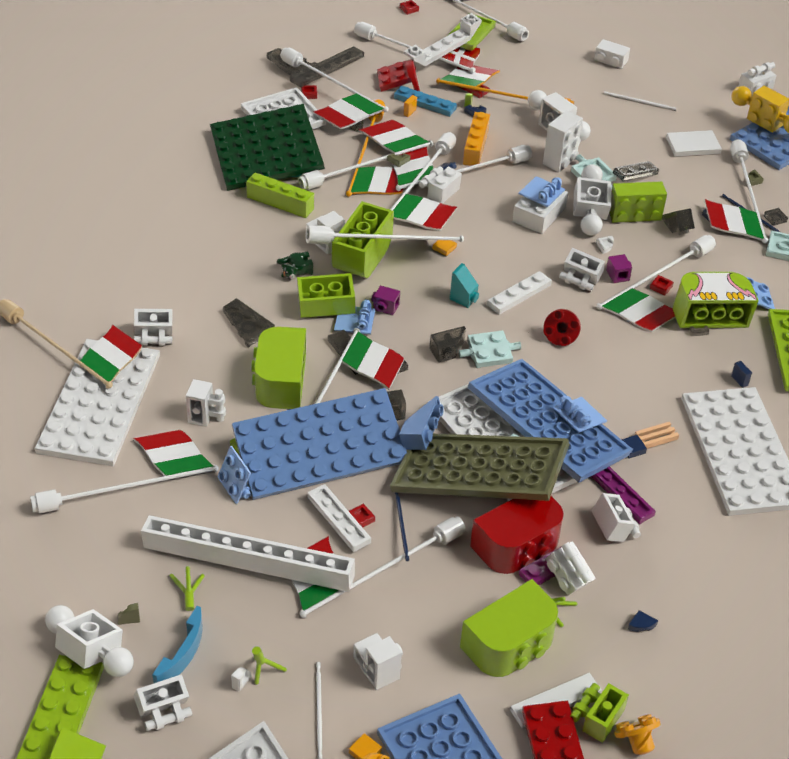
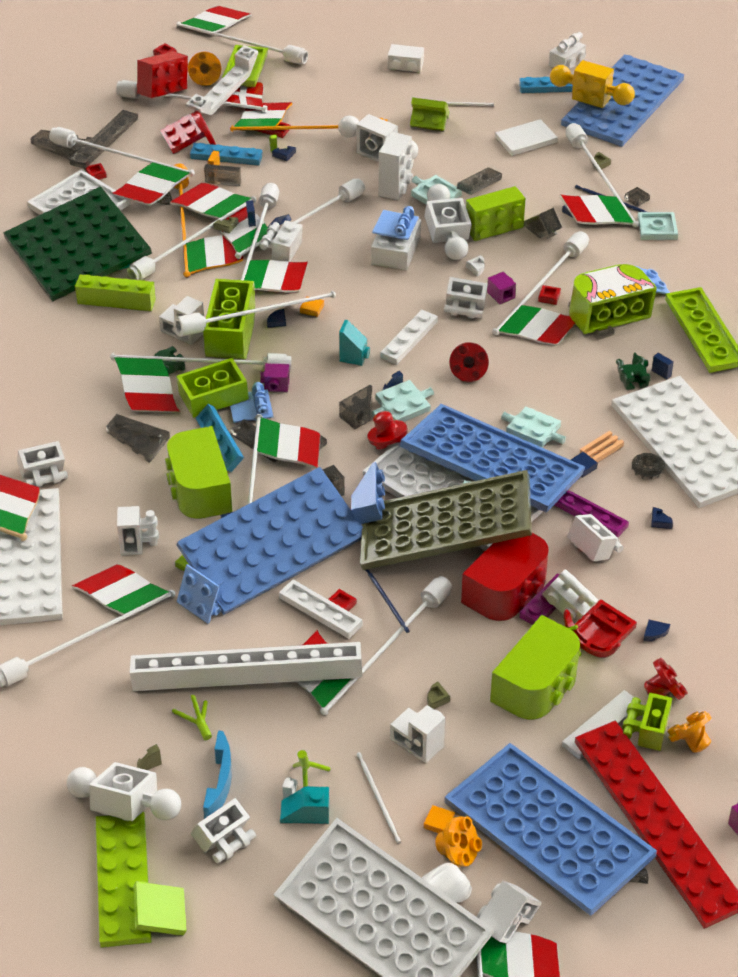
camera: 15 degrees left, 0 degrees up
(249, 700) = (306, 806): none -> teal slope
(273, 278) = (149, 385): none -> flag
(315, 341) = (230, 452): none -> dark azure plate
(395, 23) = (162, 74): none -> red brick
(409, 249) = (276, 319): none -> dark blue tile
(411, 629) = (437, 696): none -> olive tile
(413, 117) = (222, 174): none -> clear smoke tile
(422, 154) = (250, 213): none -> dark blue tile
(434, 26) = (204, 68): none -> light orange plate
(462, 370) = (386, 430): none -> red plate
(476, 139) = (300, 183): light orange brick -> none
(491, 327) = (397, 378): none -> dark blue tile
(579, 413) = (521, 444): light blue hinge -> none
(589, 607) = (601, 629): none -> red piece
(602, 399) = (534, 427): none -> light aqua plate
(613, 104) = (429, 114): none -> lime bracket
(630, 676) = (665, 681): none -> red plate
(687, 517) = (660, 519): none -> dark blue tile
(695, 457) = (648, 460): none -> clear smoke gear
(713, 374) = (634, 372): none -> dark green animal
(723, 101) = (541, 85): none -> dark azure plate

